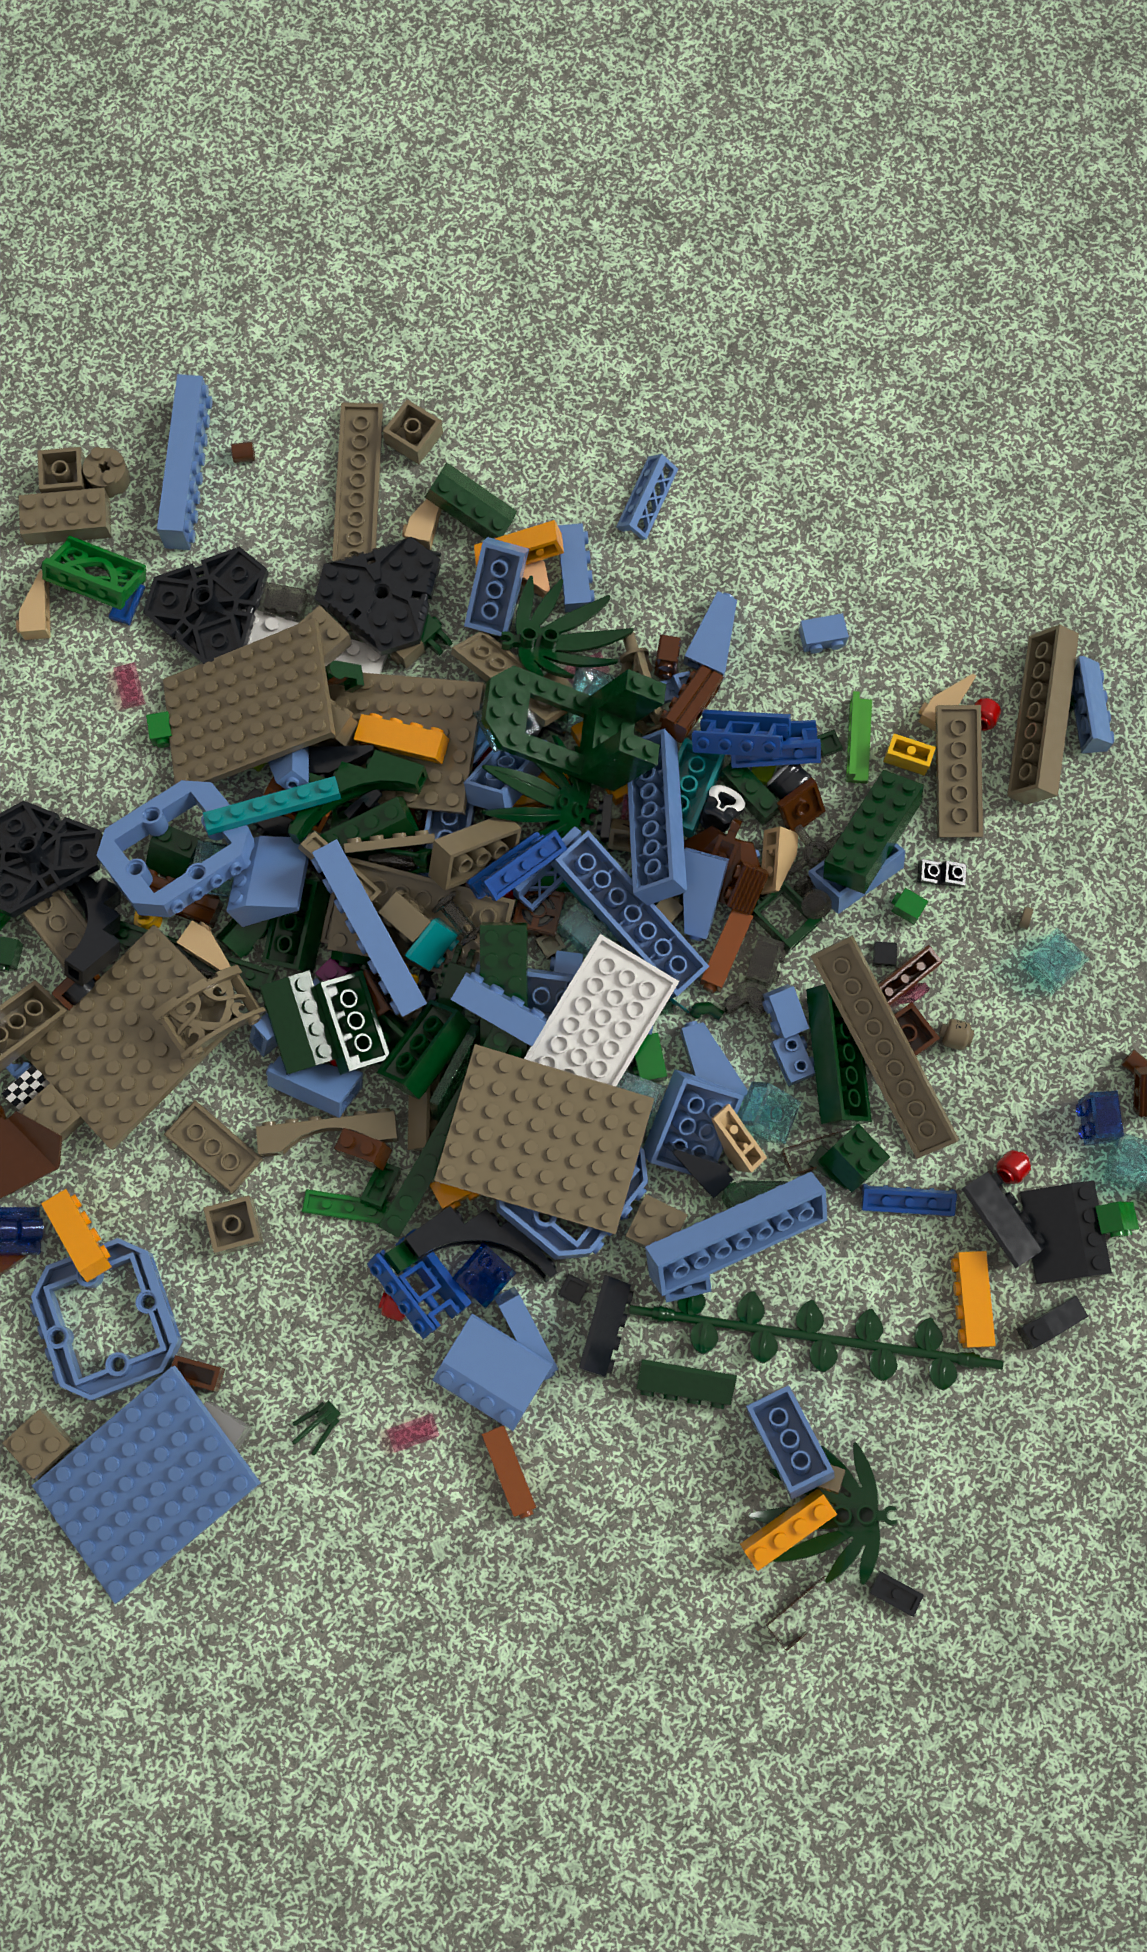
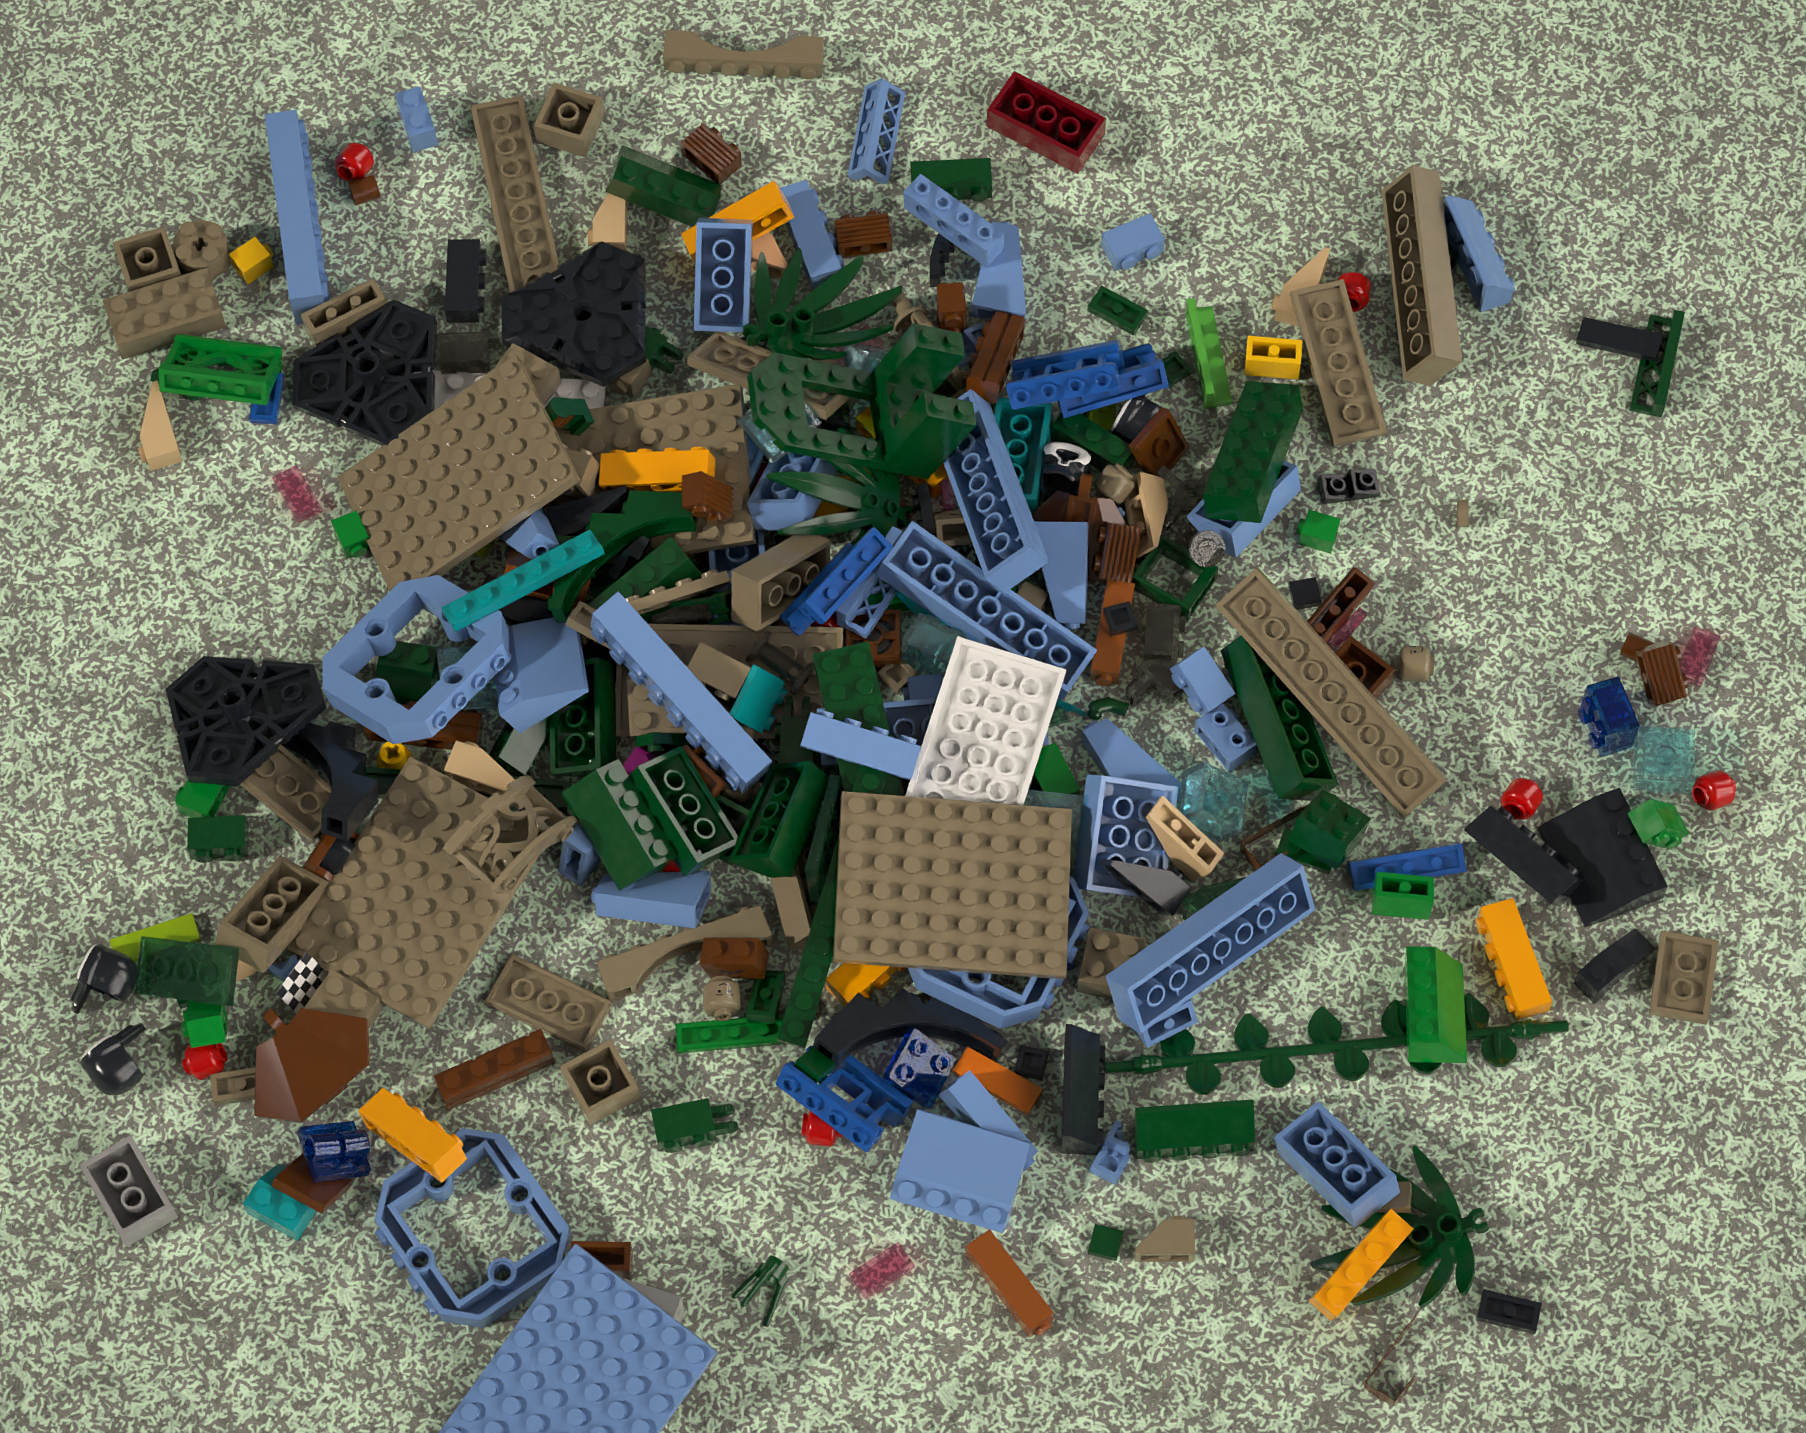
camera: 10 degrees left, 10 degrees down
(39, 1444) = (430, 1387): dark tan brick -> none
(143, 488) = (252, 260): none -> yellow brick
(155, 1193) = (494, 1069): none -> reddish brown brick
(198, 547) = (342, 311): none -> dark tan brick
(240, 427) = (353, 162): none -> red head
(294, 1275) = (690, 1124): none -> dark green hinge
(296, 404) = (416, 119): none -> medium blue brick
(300, 543) = (465, 281): none -> black brick
(345, 1178) = (721, 998): none -> dark tan head
(432, 772) = (707, 497): none -> reddish brown brick
(515, 484) = (711, 153): none -> reddish brown brick
(543, 1298) = (999, 1081): none -> orange tile
(593, 1453) = (1105, 1242): none -> dark green tile
(599, 421) = (797, 57): none -> dark tan arch
(615, 577) = (863, 234): none -> reddish brown brick
(617, 1383) = (1112, 1156): none -> medium blue slope
(643, 1467) = (1169, 1242): none -> dark tan slope
(670, 608) = (938, 258): none -> black slope
(687, 584) = (953, 220): none -> medium blue brick
(694, 549) = (958, 177): none -> dark green brick
(734, 943) = (1120, 618): none -> black tile
(758, 830) = (1114, 483): none -> dark tan head
(780, 519) = (1046, 122): none -> dark red brick
(797, 686) = (1117, 310): none -> dark green plate
(899, 1226) = (1402, 895): none -> green brick
(900, 1327) = (1434, 1006): none -> green slope
(1054, 961) = (1509, 554): clear light blue brick -> none
(1104, 1348) = (1683, 977): none -> dark tan plate

